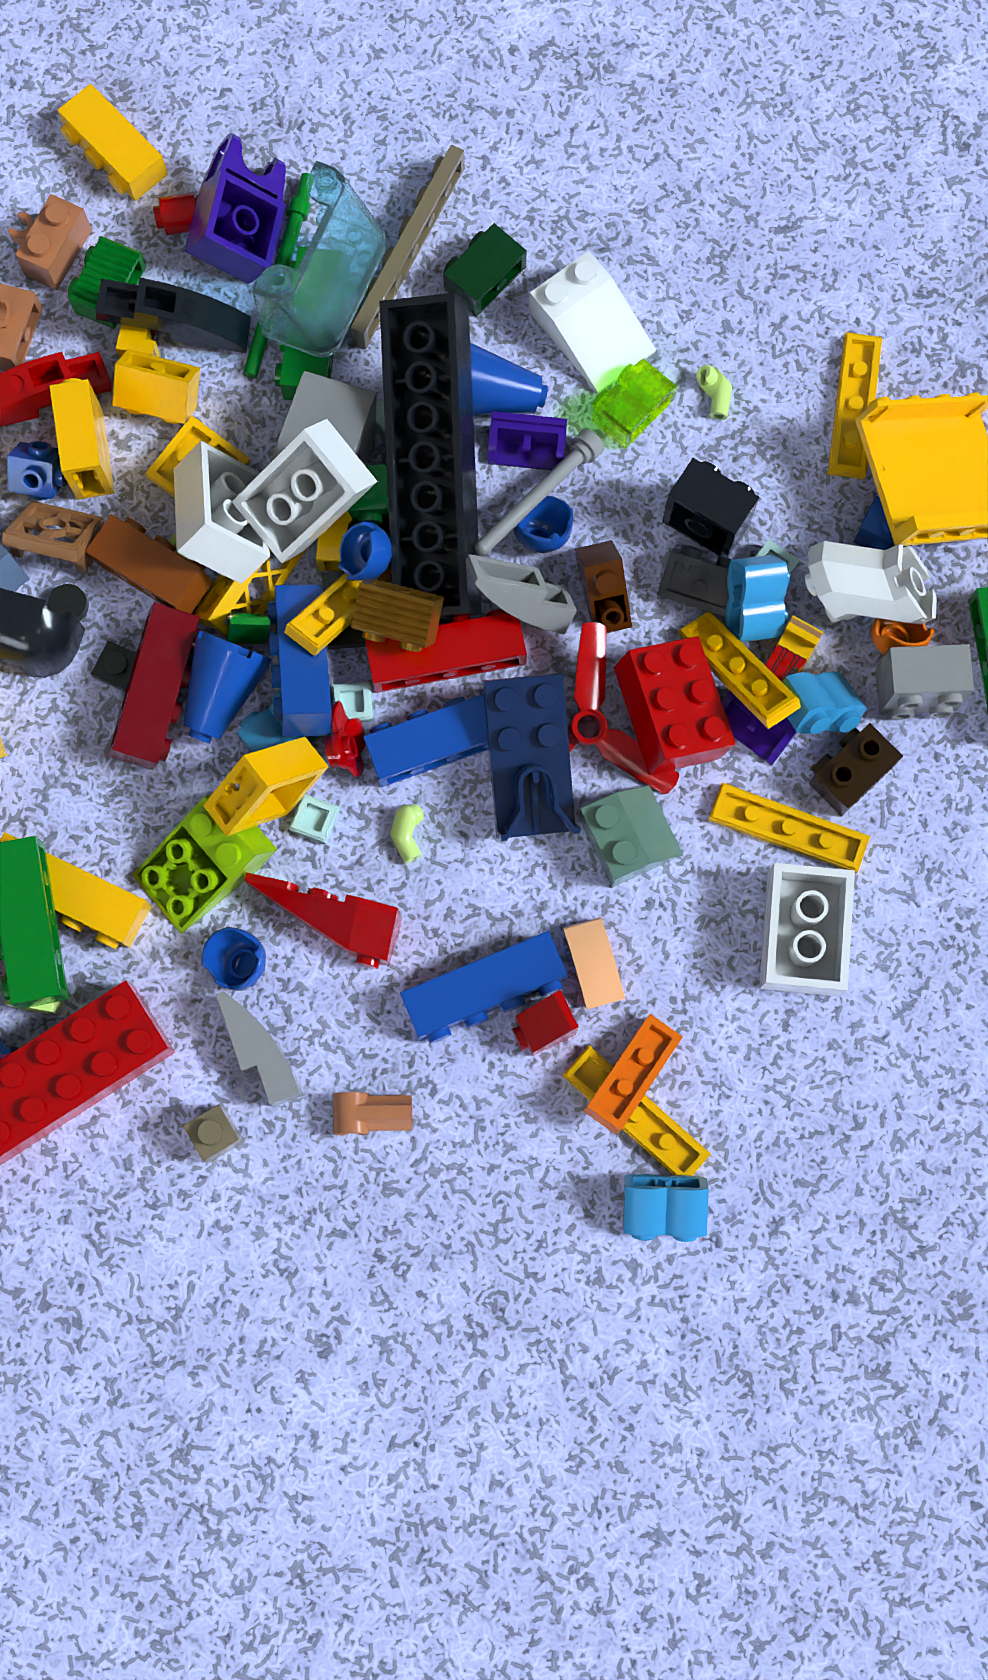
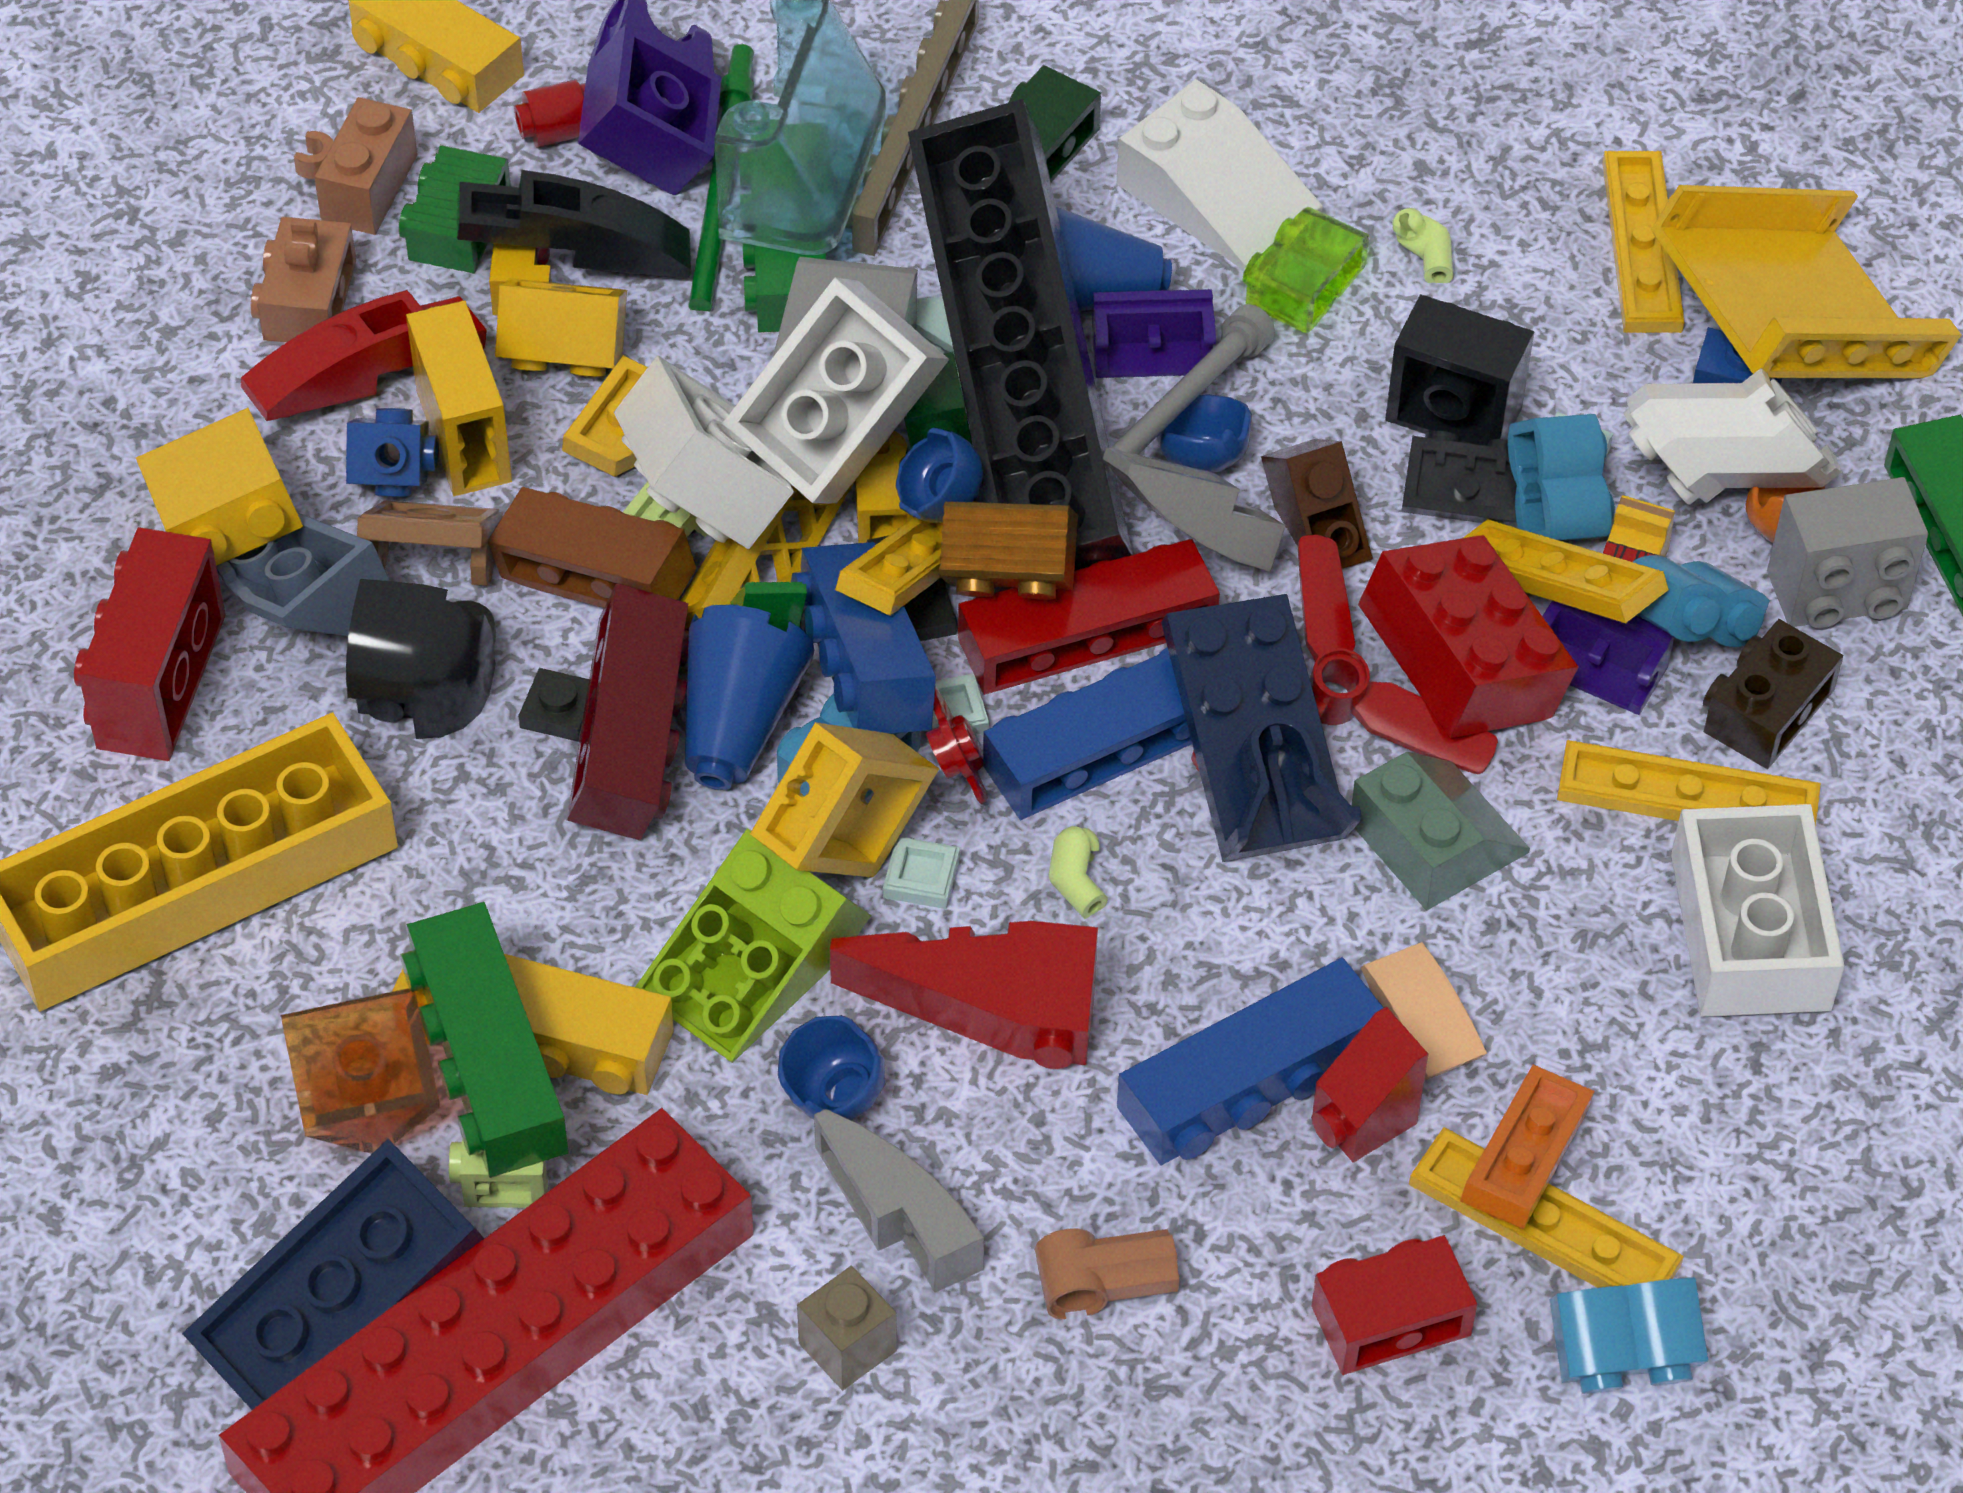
camera: 10 degrees left, 25 degrees down
(533, 1162) = (1393, 1303): none -> red brick

